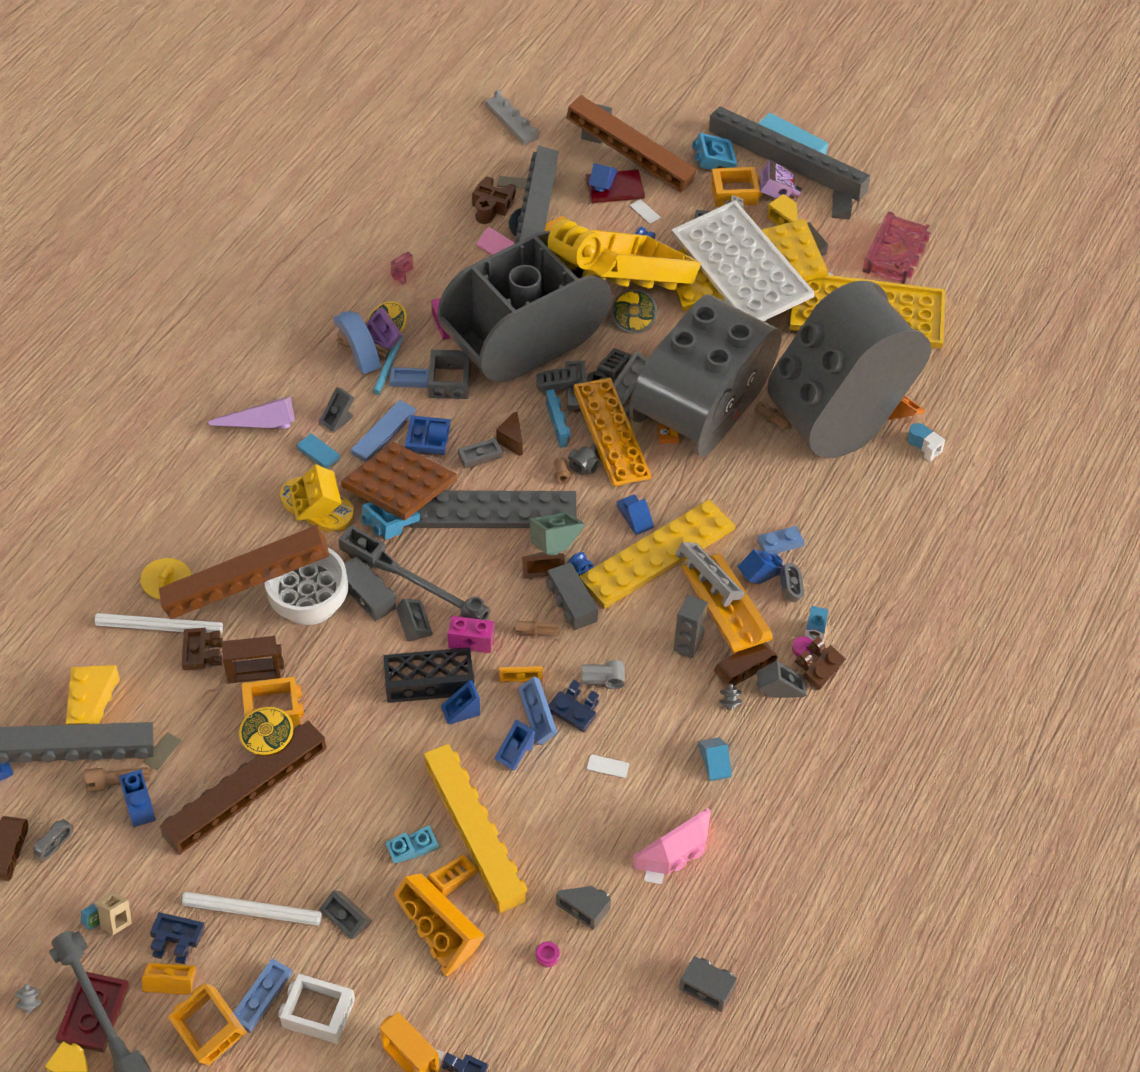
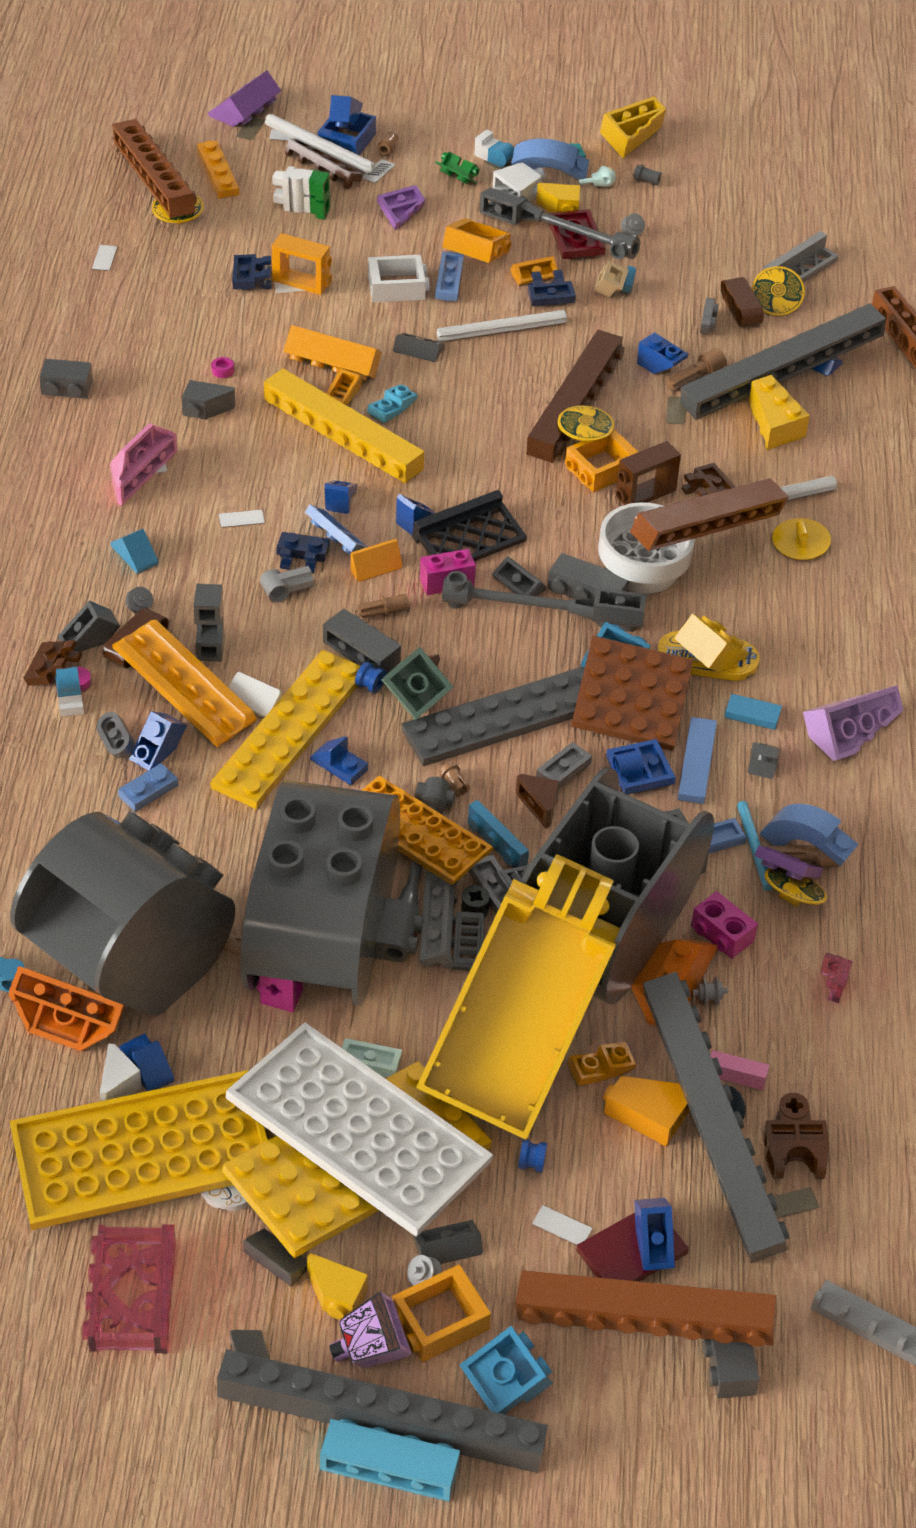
camera: 155 degrees right, 5 degrees down
(673, 584) = (255, 694): none -> white slope
(711, 572) = (214, 697): light grey hinge -> none

